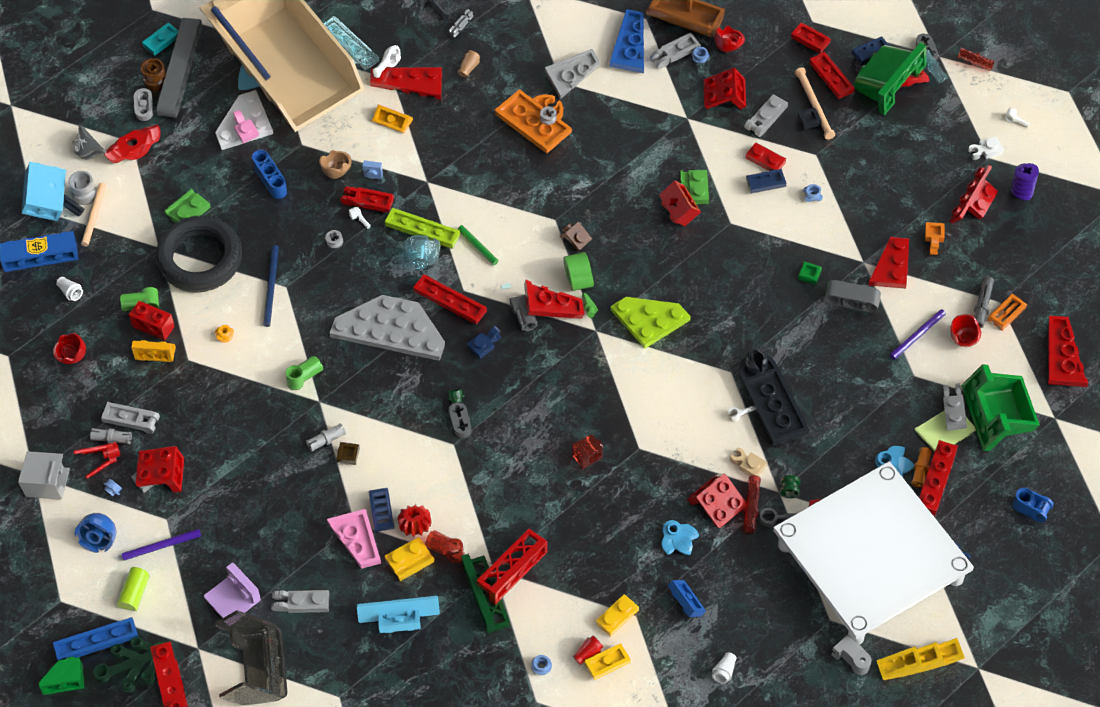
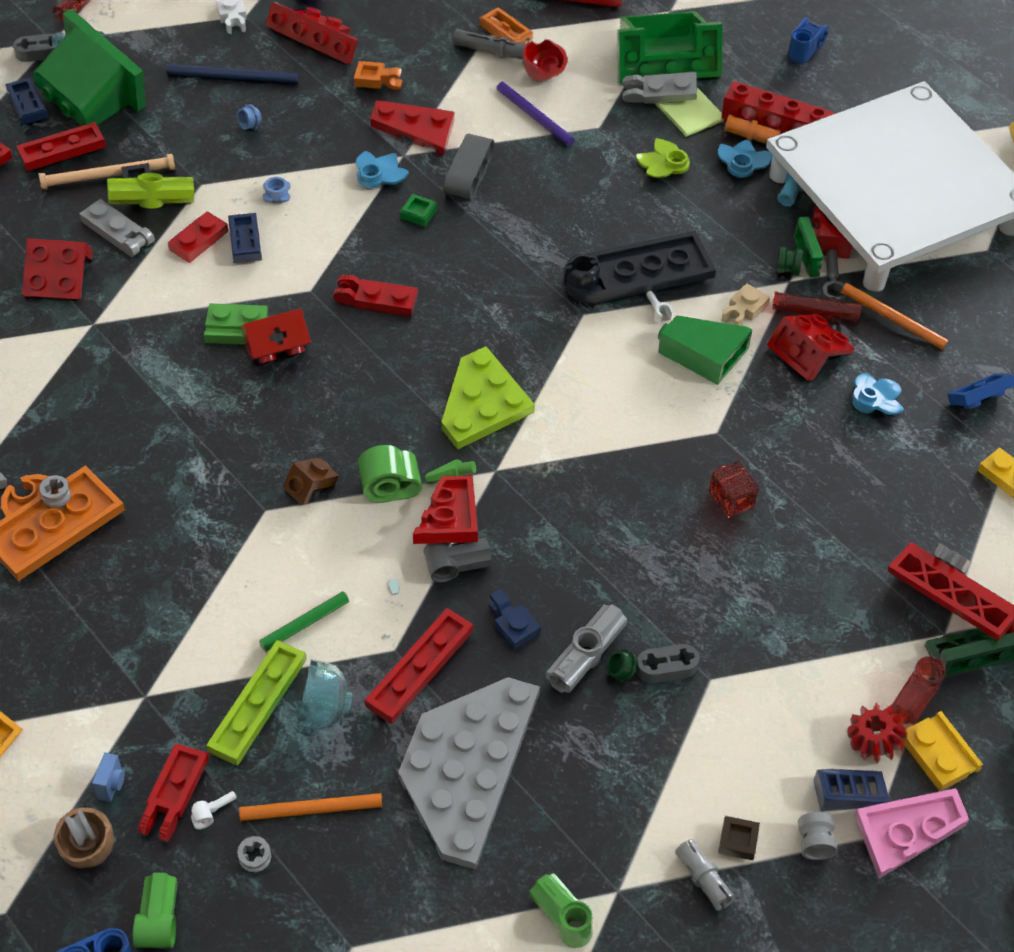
camera: 90 degrees left, 5 degrees down
(293, 201) = (156, 922): none -> bright green piece
(337, 158) = (80, 827): none -> light grey bush
(349, 490) = (817, 835): none -> light grey wheel
(362, 260) = (310, 807): none -> orange bar
(472, 382) = (576, 660): none -> light grey piece
(543, 567) = (951, 558): none -> light grey plate
(703, 436) = (704, 345): none -> green slope
(728, 258) = (376, 295): none -> red hinge
(748, 550) = (894, 316): none -> orange bar
(795, 125) = (150, 190): none -> lime piece
(801, 499) = (806, 240): none -> green tile
(845, 247) = (379, 170): none -> dark azure plate
(878, 170) = (248, 117): none -> medium blue plate
(882, 411) = (665, 160): none -> lime plate
(923, 157) = (229, 73): none -> dark blue piece

